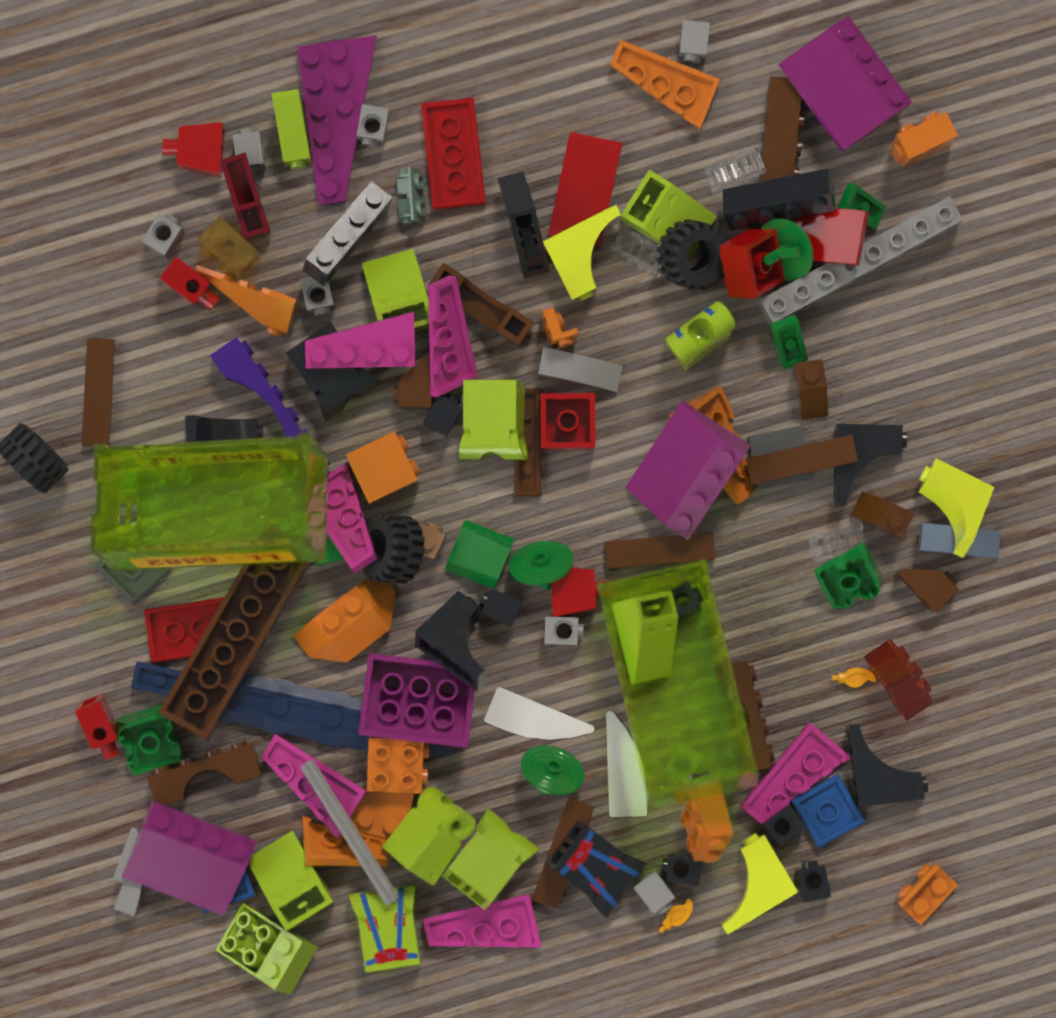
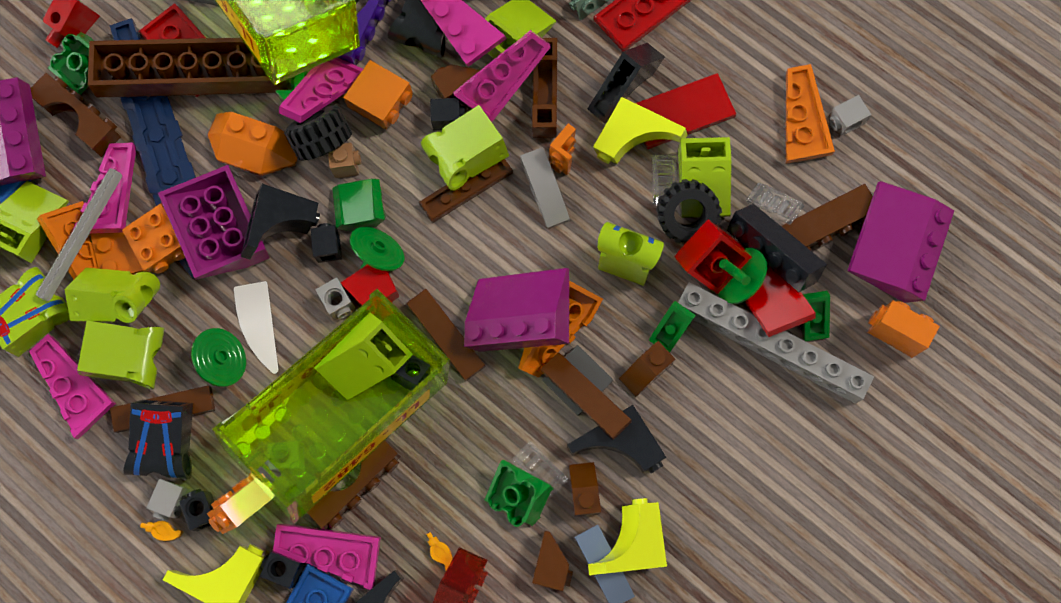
camera: 60 degrees right, 10 degrees down
(568, 421) = (498, 201): red brick -> none

